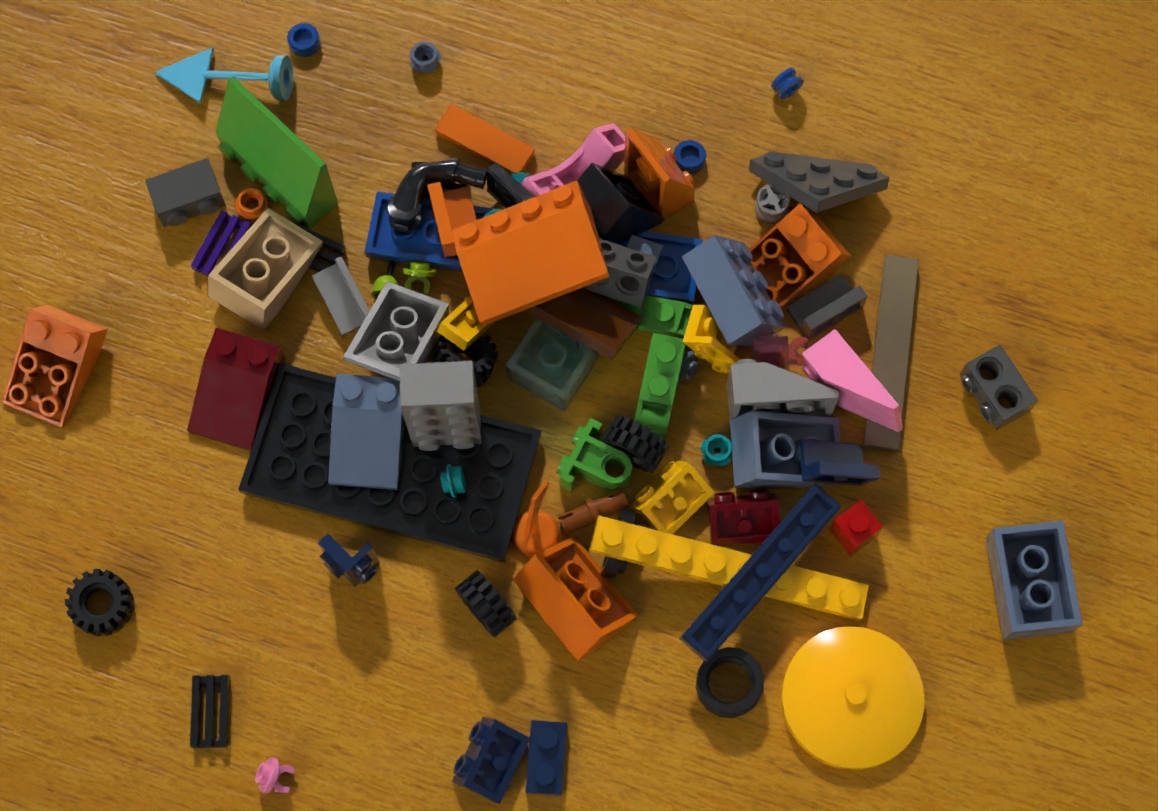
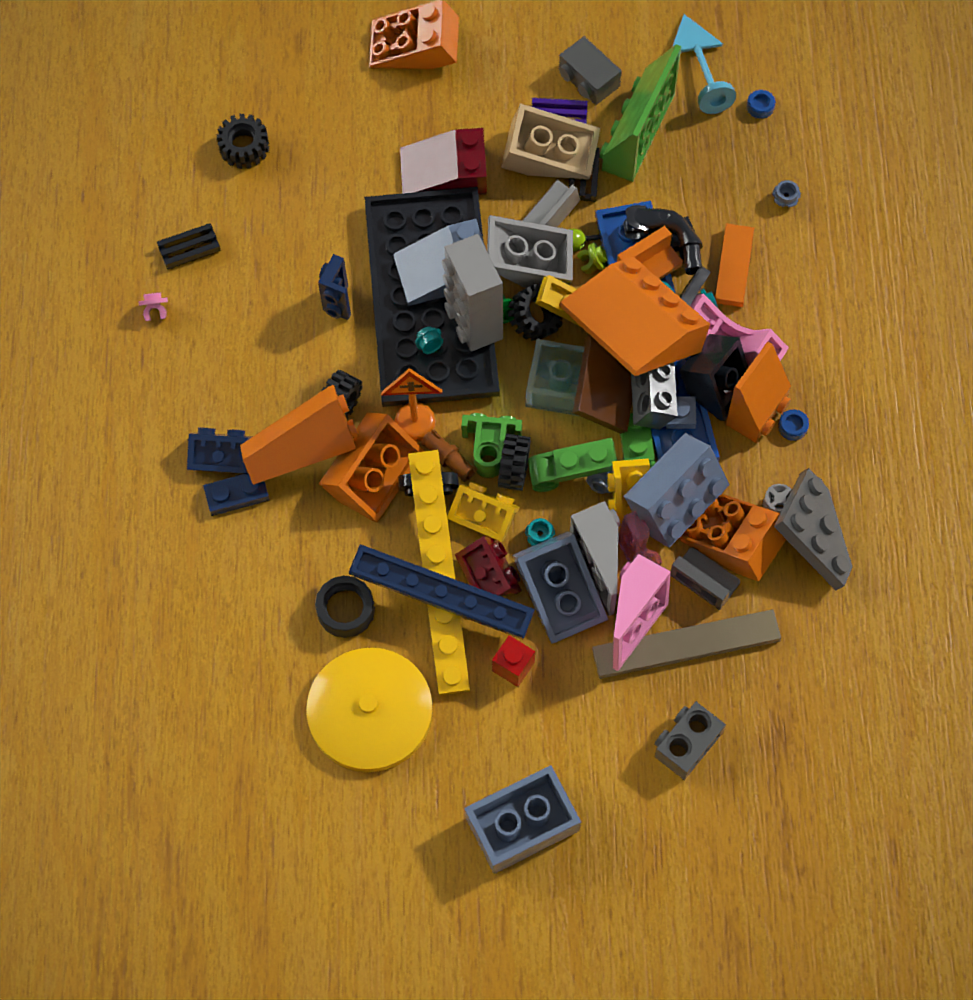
camera: 70 degrees right, 5 degrees down
(246, 197) = (602, 113): orange plate -> none
(526, 659) = (301, 437): none -> orange slope
(787, 83) = (897, 477): blue bush -> none
(835, 463) = (564, 625): dark blue panel -> none

